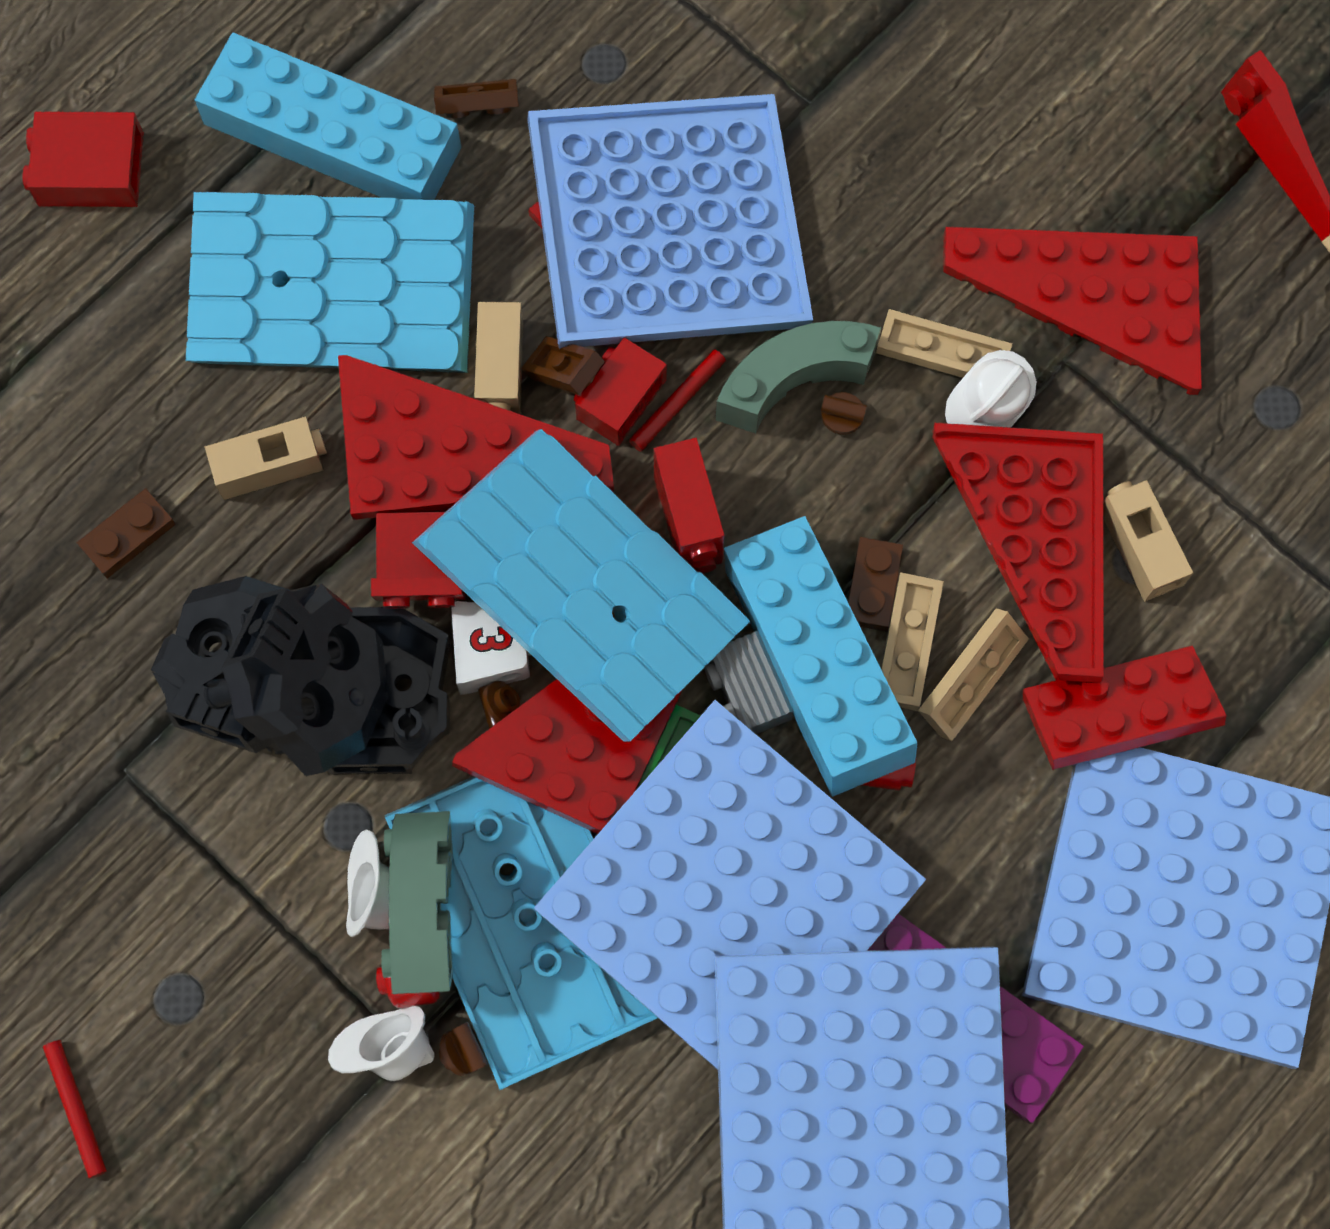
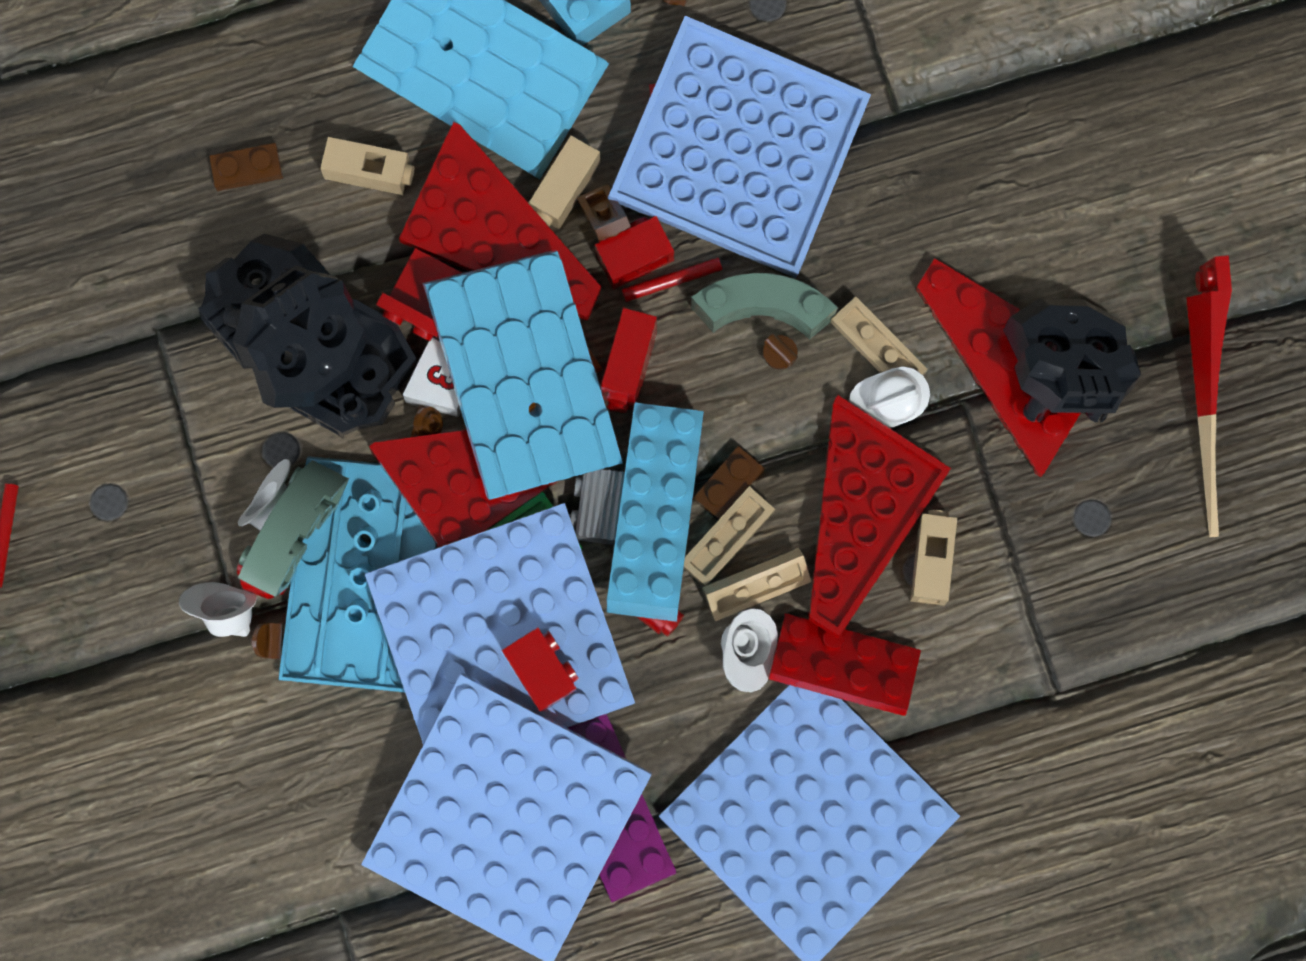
camera: 30 degrees right, 5 degrees up
(804, 898) = (540, 668): none -> red brick
(1010, 748) = (749, 649): none -> white piece
(1161, 248) = (1071, 358): none -> black brick

